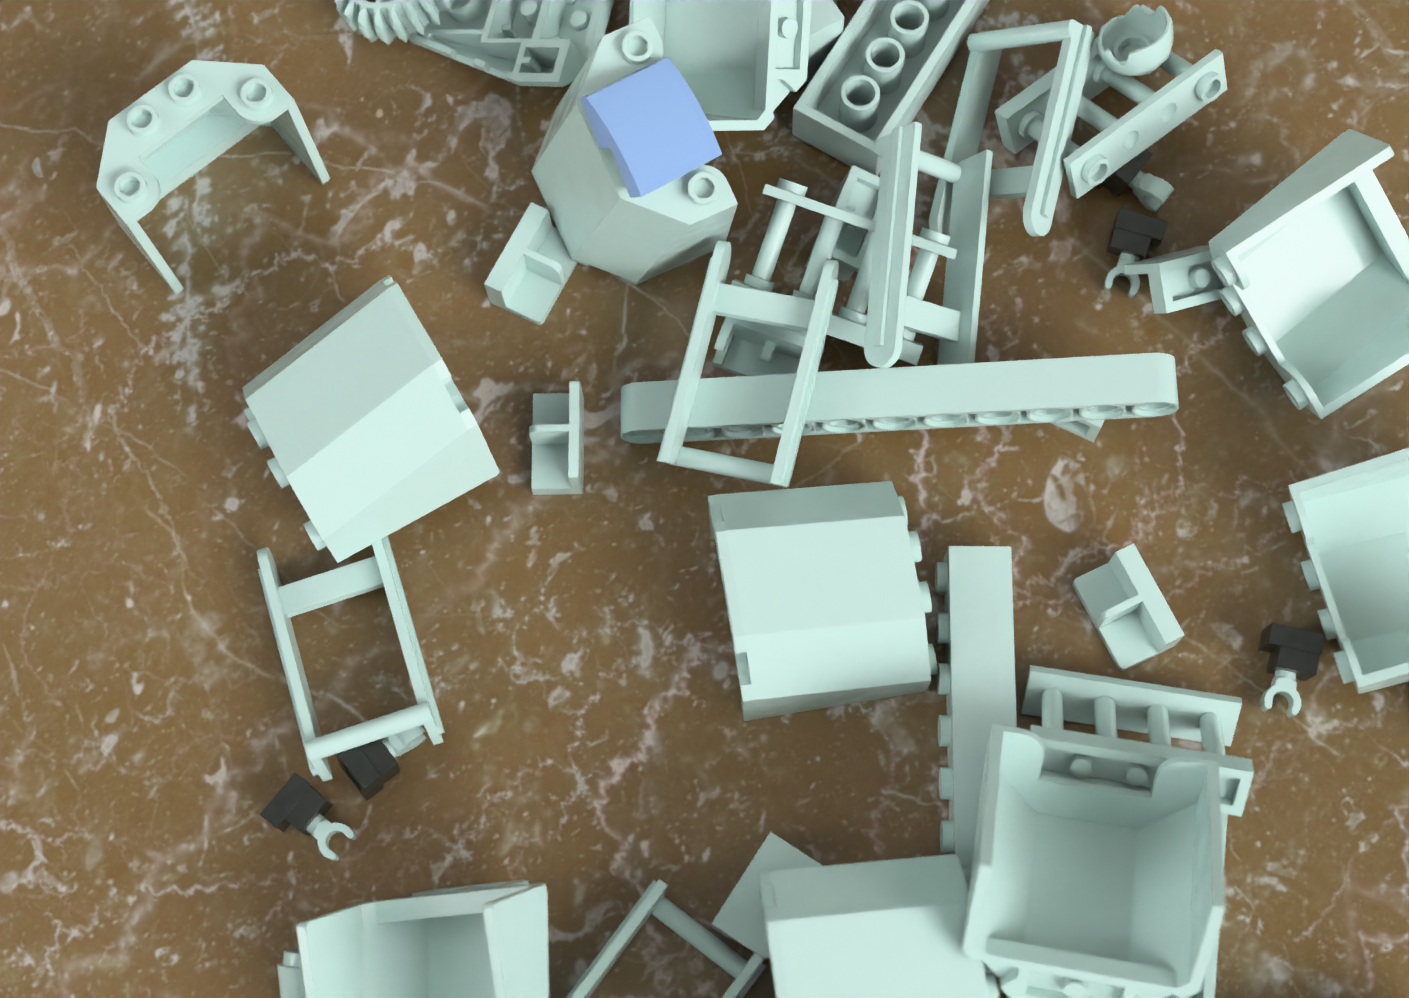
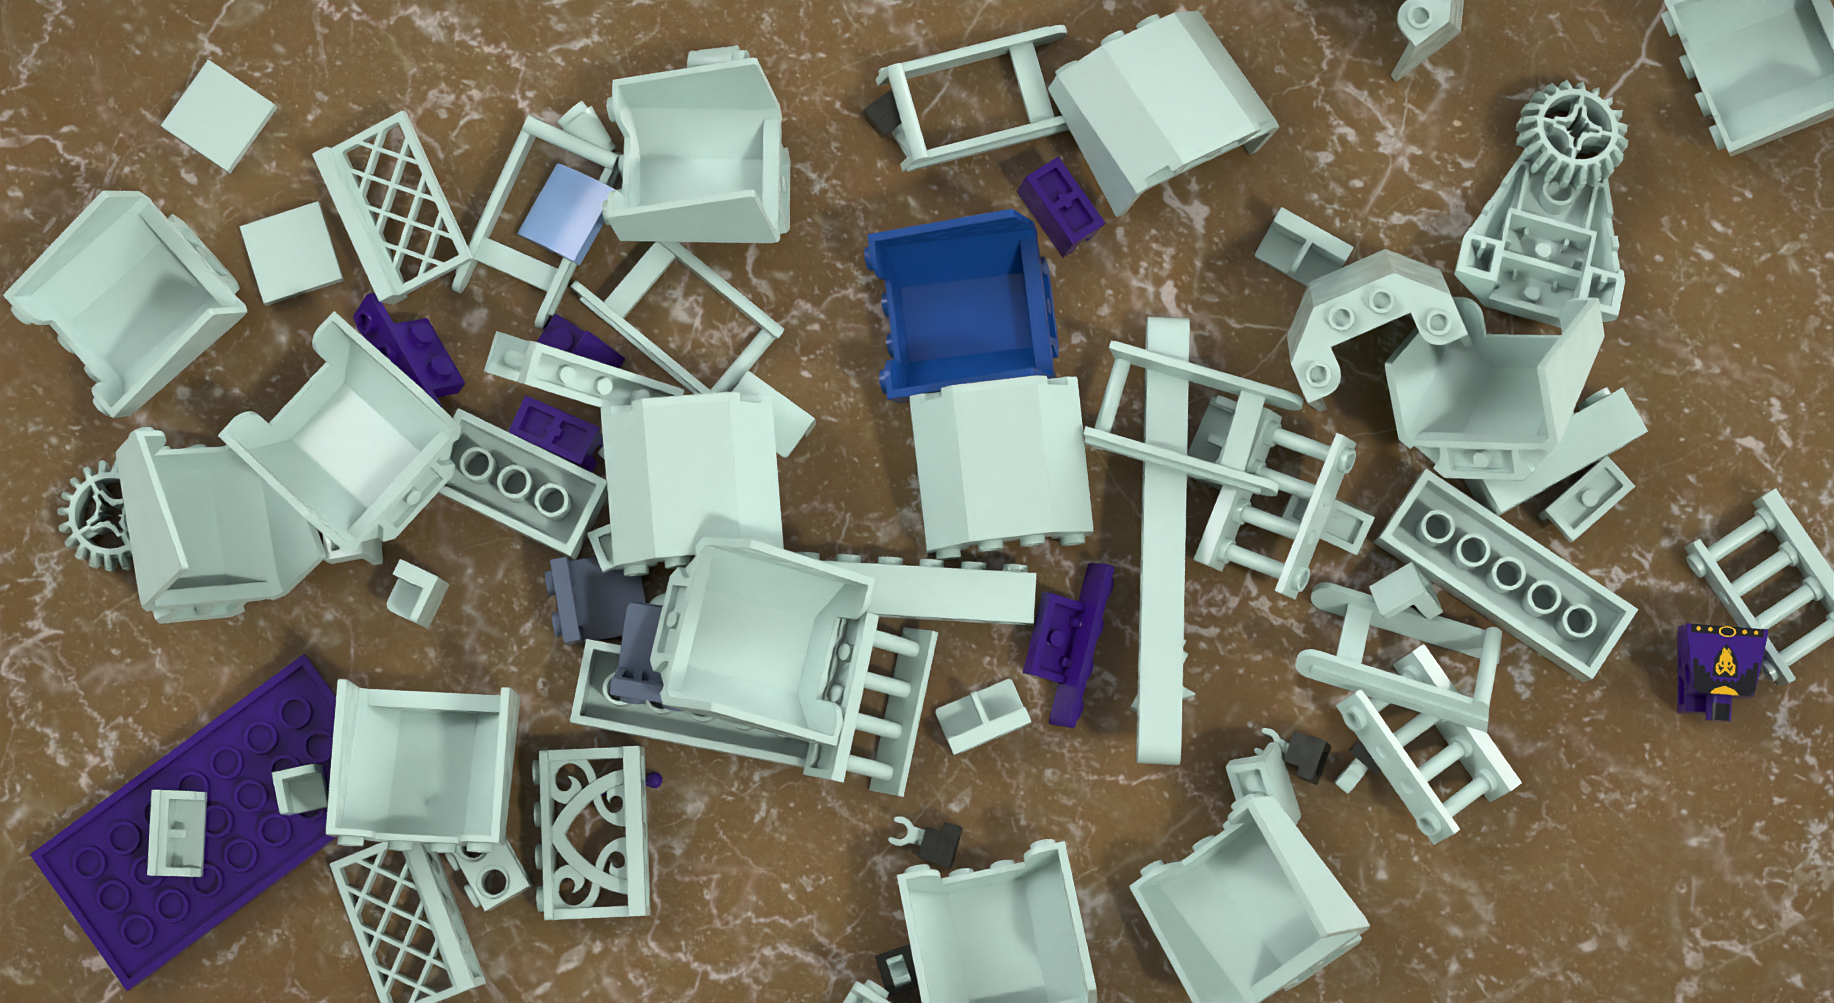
camera: 90 degrees right, 10 degrees up
(305, 809) = (855, 62): pearl dark grey piece -> none
(486, 544) = (1060, 206): none -> dark purple hinge
(558, 442) = (1147, 267): light aqua panel -> none
(623, 652) = (964, 303): none -> blue windscreen
(651, 126) = (1367, 332): light blue slope -> none
(888, 303) = (1232, 599): light aqua piece -> none
(941, 130) = (1403, 589): none -> light aqua panel
(1026, 509) = (1066, 641): none -> dark purple bracket
(1136, 41) = (1474, 763): light aqua hair -> none

